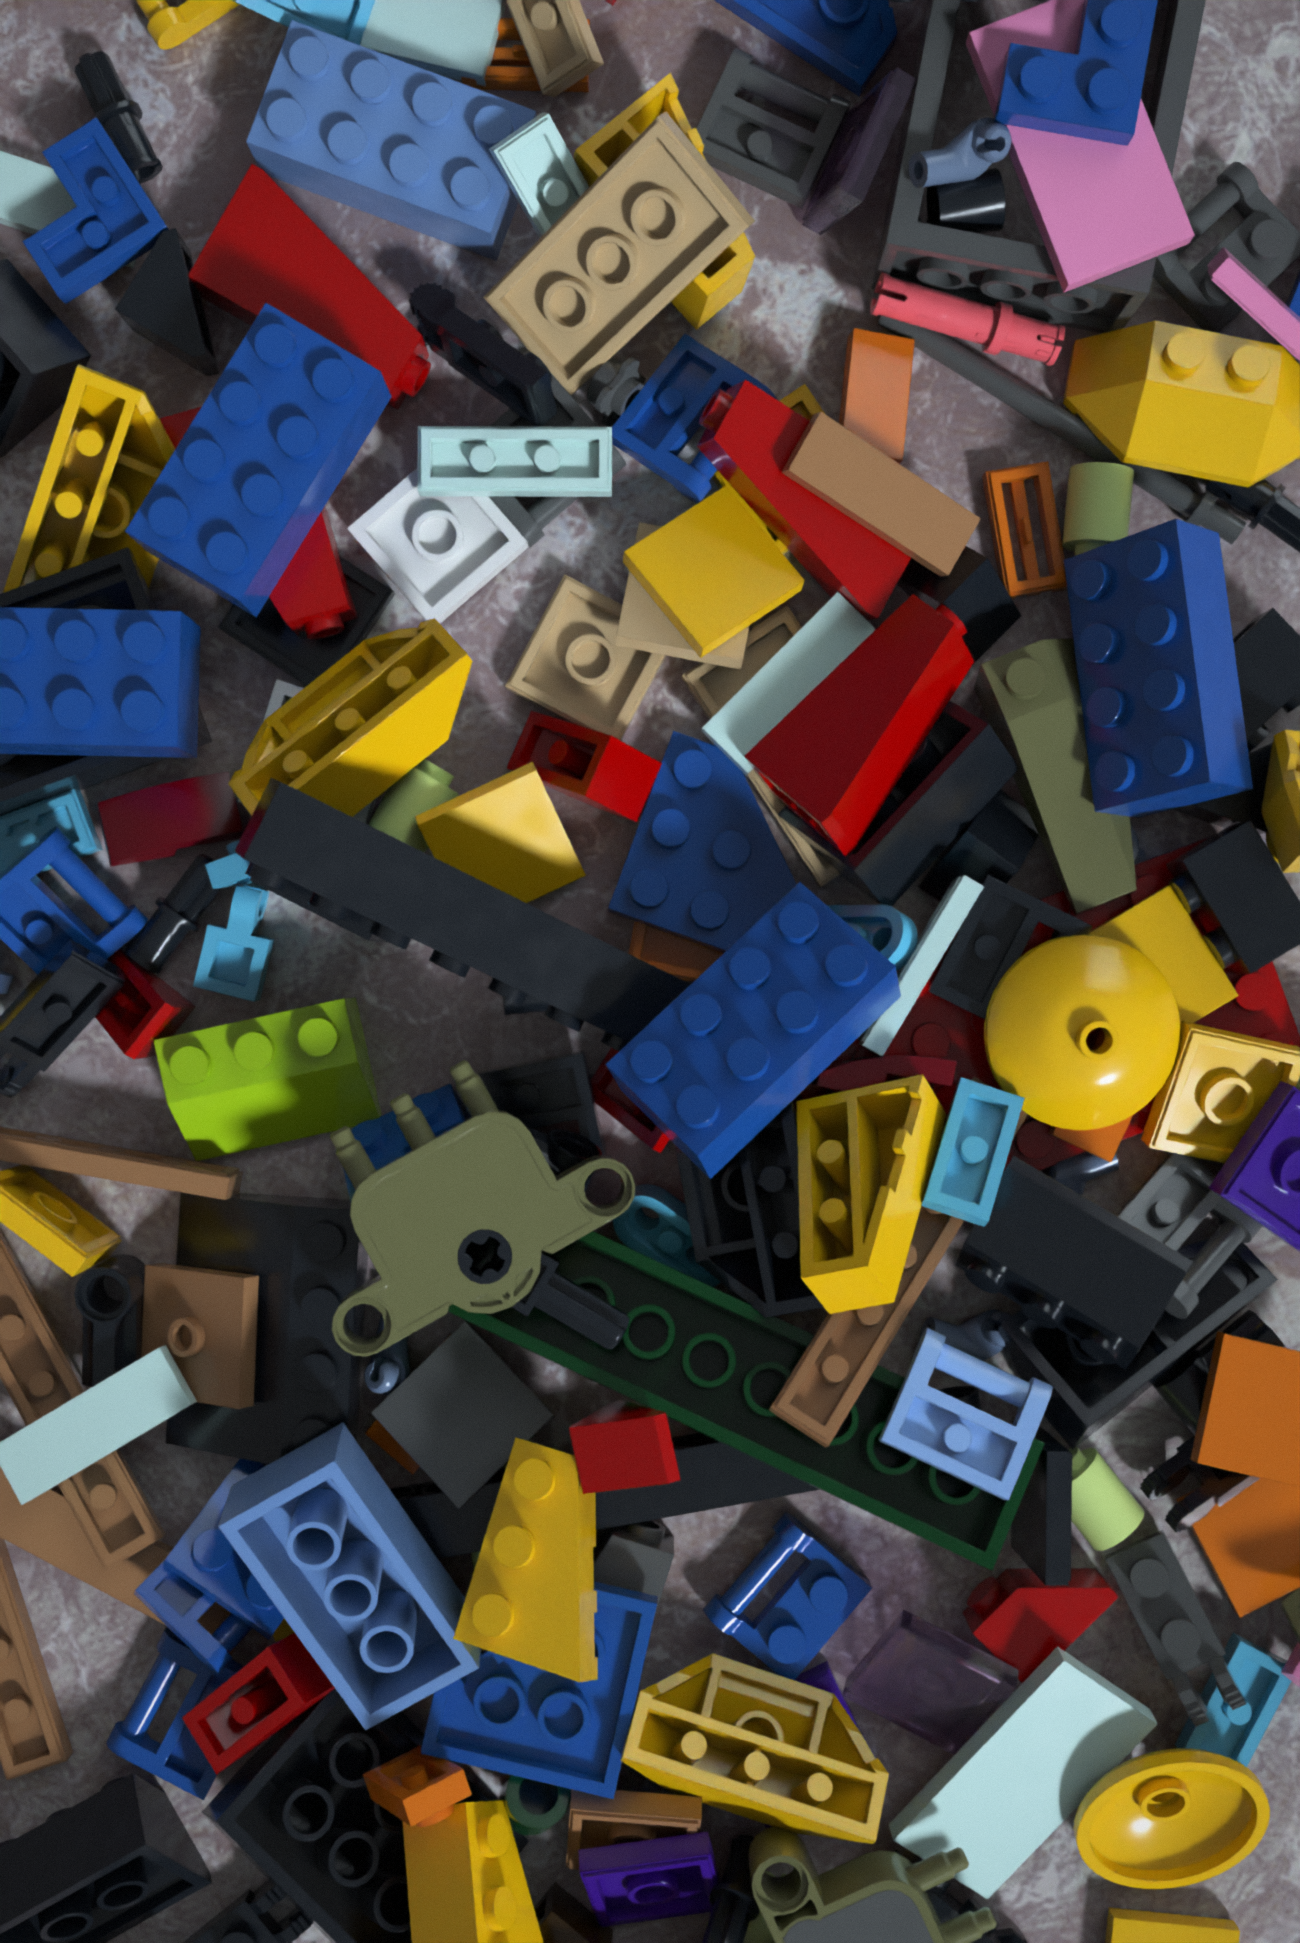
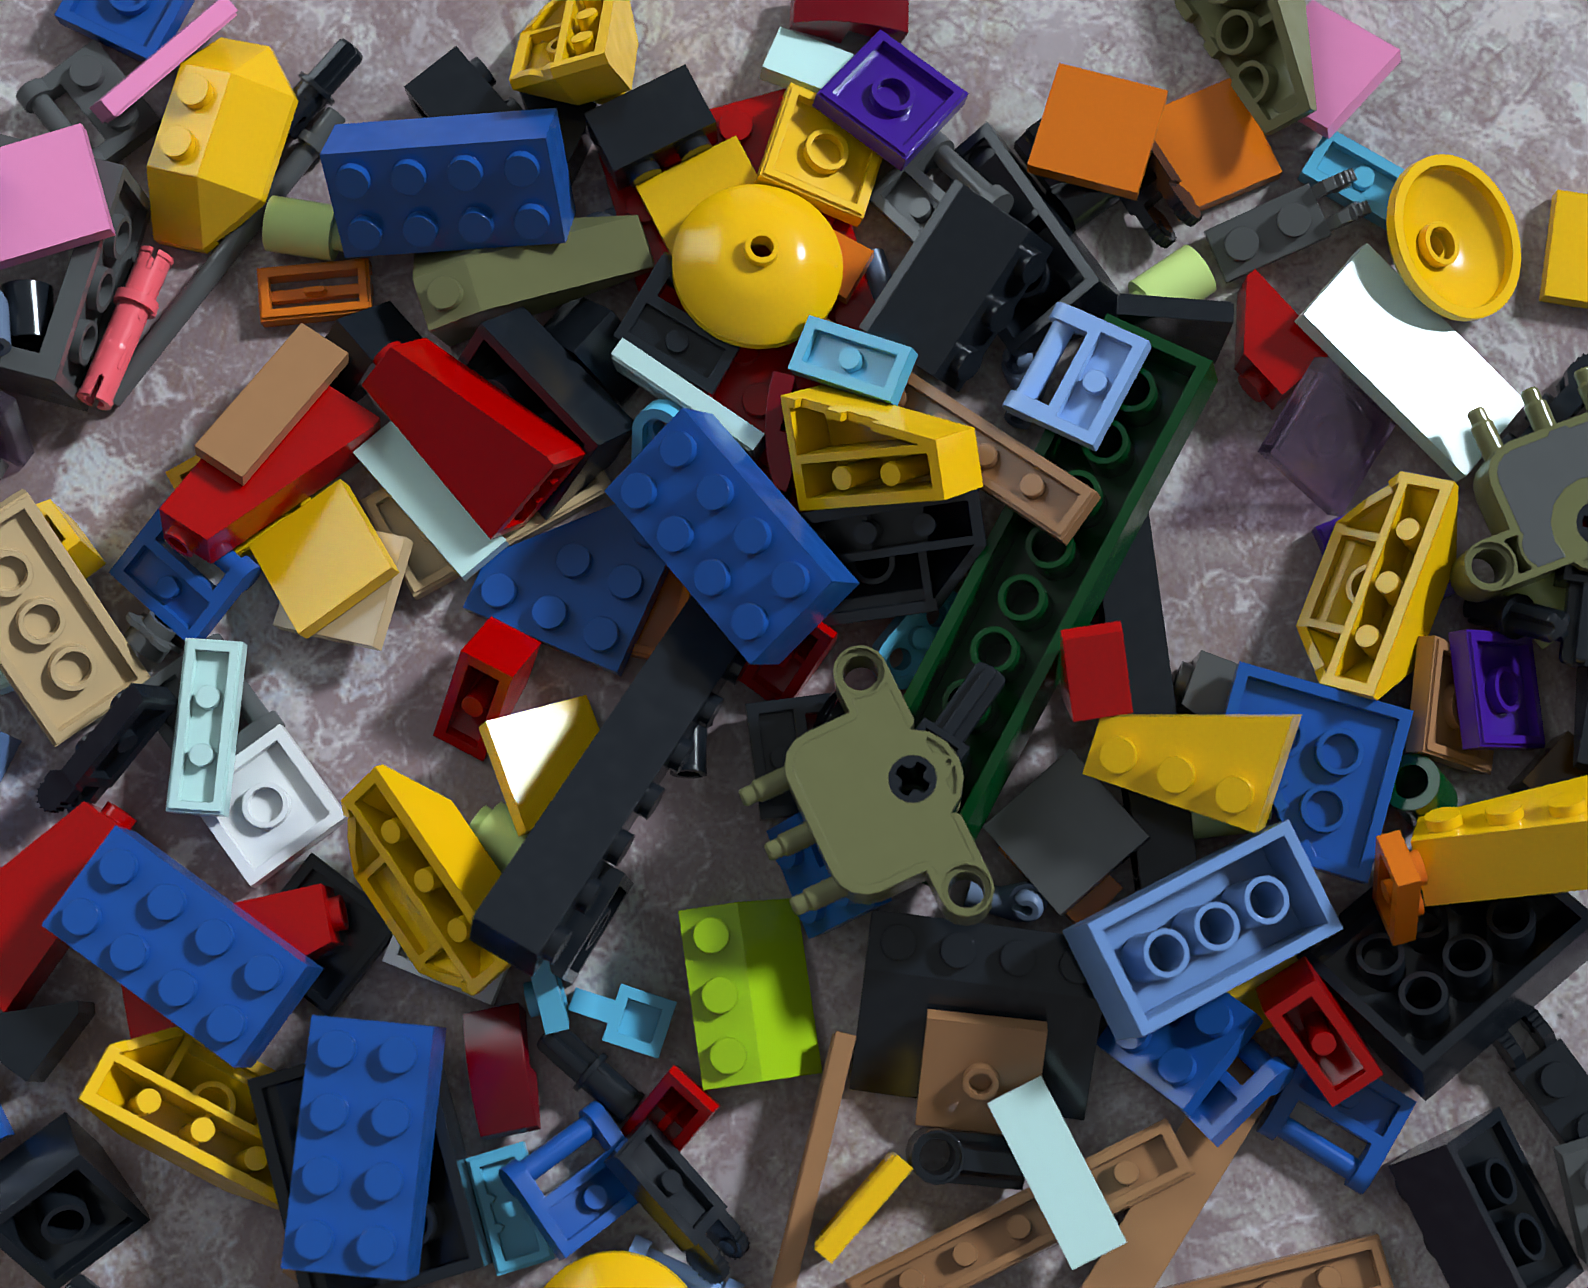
camera: 85 degrees left, 10 degrees down
(577, 667) = (394, 689): tan tile -> none
(802, 1611) = (1262, 546): blue plate -> none
(877, 389) = (174, 408): orange tile -> none

